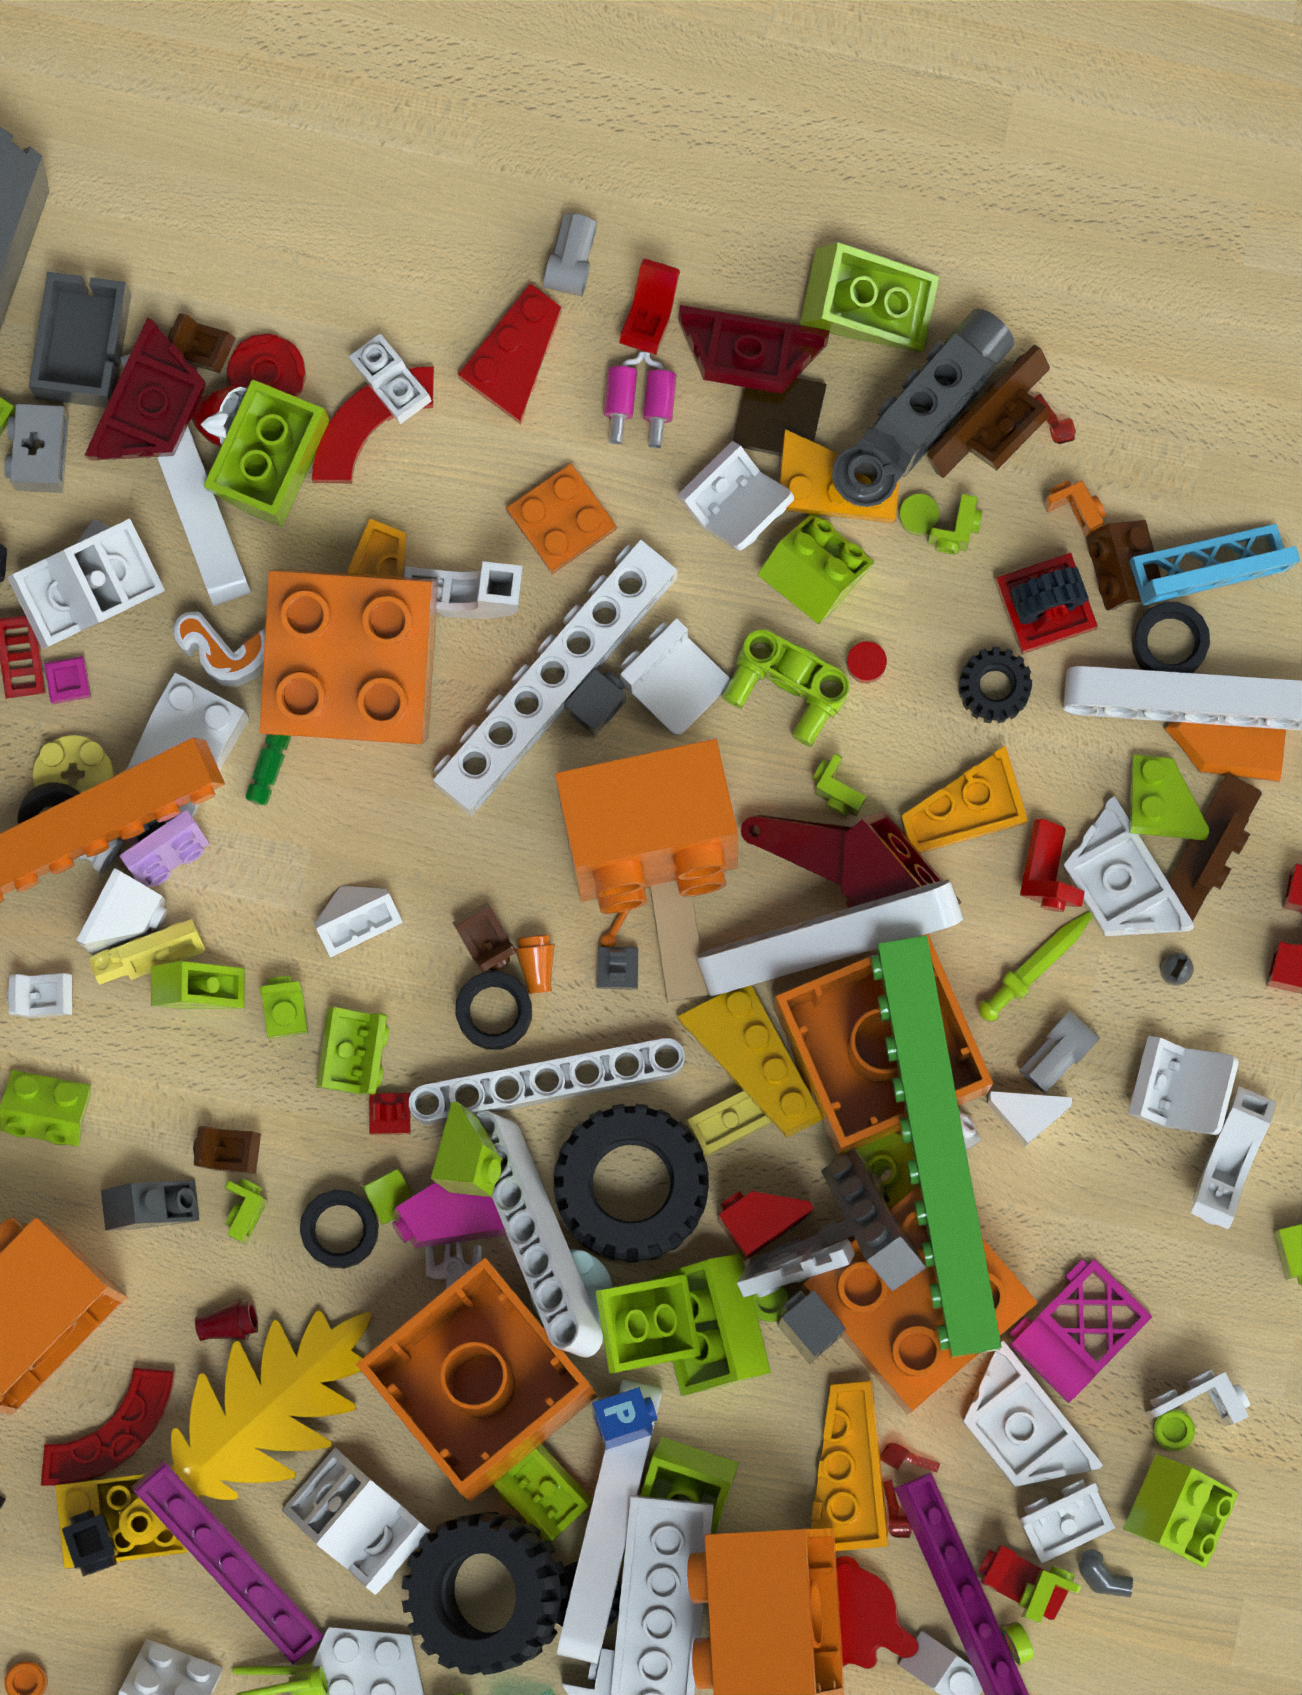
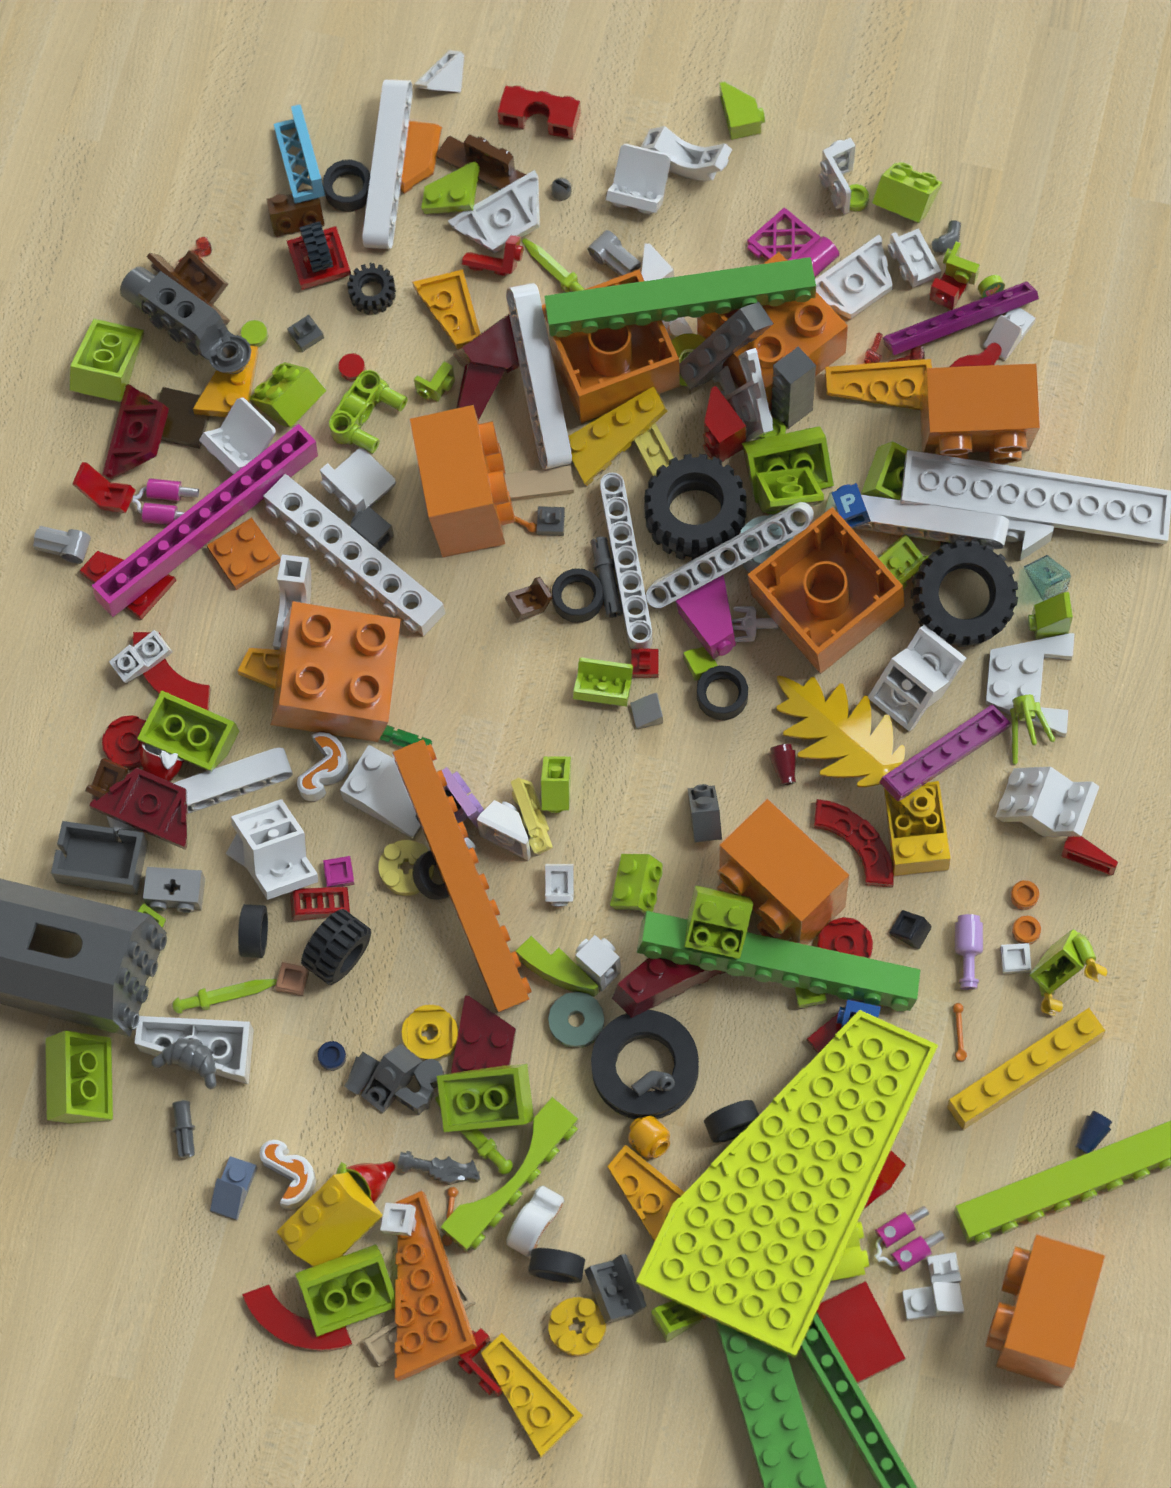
camera: 85 degrees left, 10 degrees down
(90, 1543) = (935, 829): black brick -> none
(226, 1150) = (668, 762): reddish brown bracket -> none
(245, 1216) = (711, 749): lime bracket -> none
(284, 1007) = (572, 729): lime bracket -> none
(312, 1118) = (647, 711): none -> light grey slope
(355, 916) = (510, 682): white slope -> none
(466, 1155) = (678, 597): lime slope -> none
(525, 1052) = (604, 567): none -> dark grey pin
(536, 962) = (545, 568): orange cone -> none
(598, 457) = (204, 521): none -> dark pink brick
(922, 590) = (305, 333): none -> dark grey tile
(967, 522) = (264, 304): lime bracket -> none
(1086, 509) = (255, 234): orange bracket -> none

